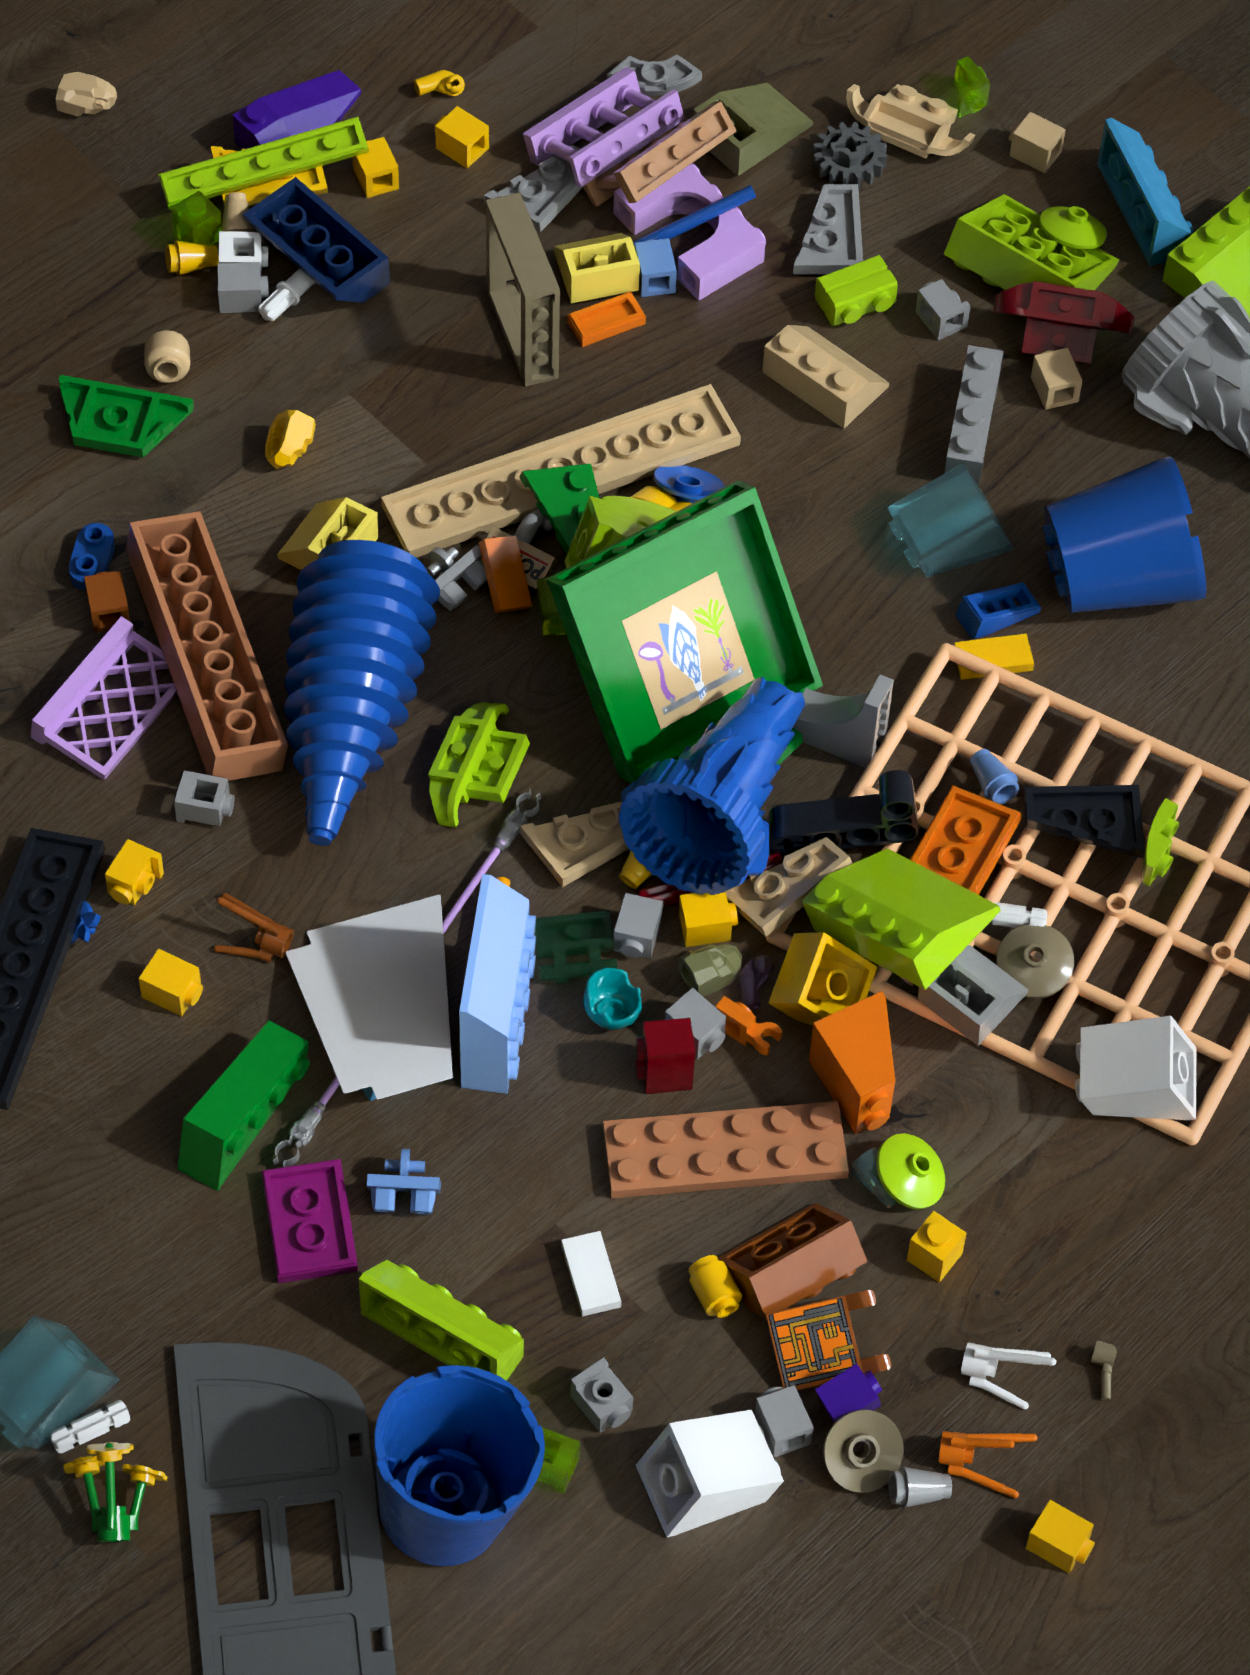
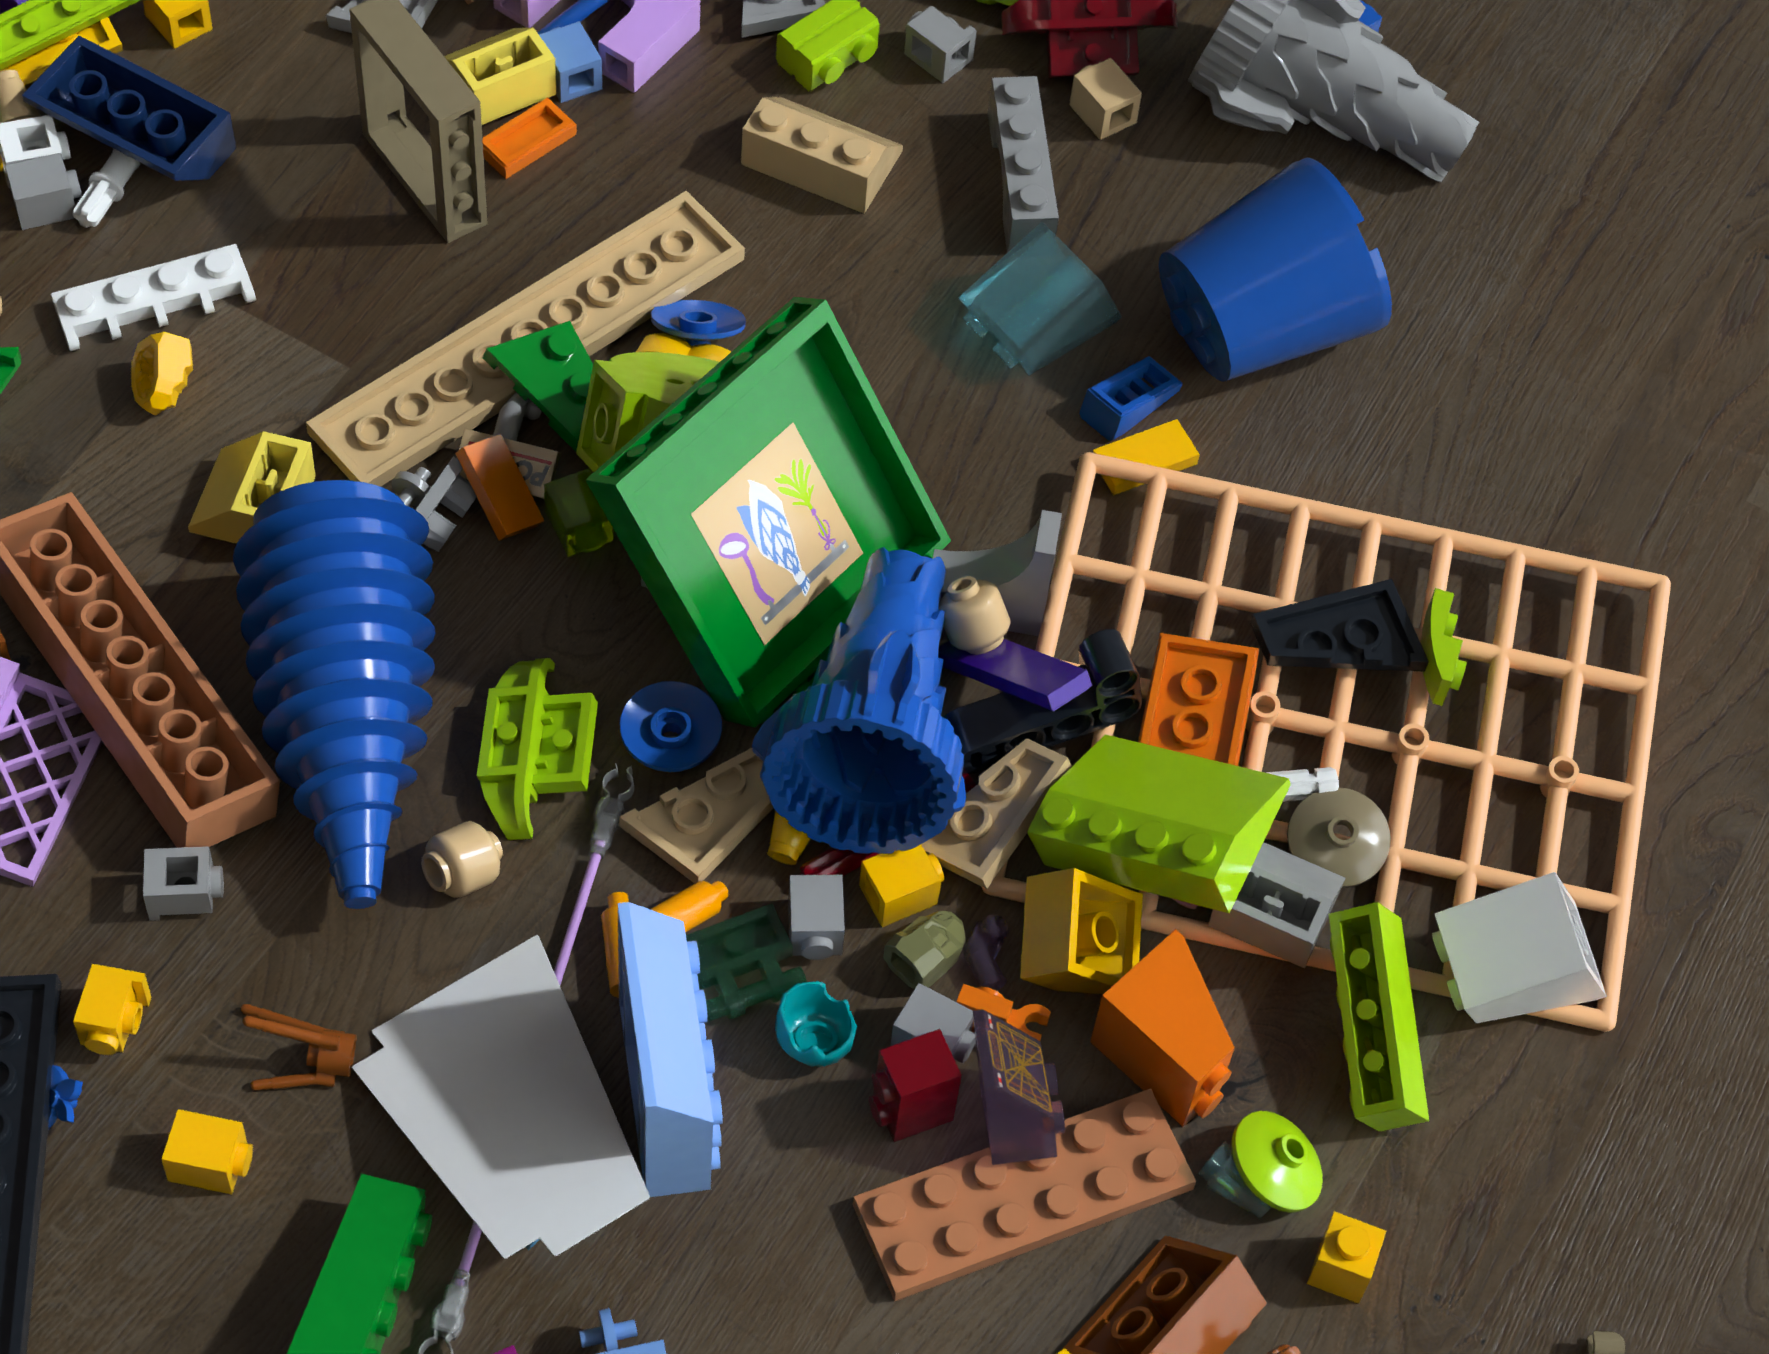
camera: 20 degrees left, 0 degrees up
(299, 379) = (152, 293): none -> white hinge
(401, 829) = (462, 859): none -> tan head
(552, 899) = (695, 903): none -> light orange cylinder
(579, 759) = (668, 708): none -> blue dish
(734, 1075) = (1016, 1092): none -> clear purple slope
(816, 741) = (974, 615): none -> tan head
(831, 785) = (1020, 673): none -> dark purple tile
(995, 779) = (1208, 610): medium blue cone -> none
(1015, 1090) = (1378, 1017): none -> lime brick

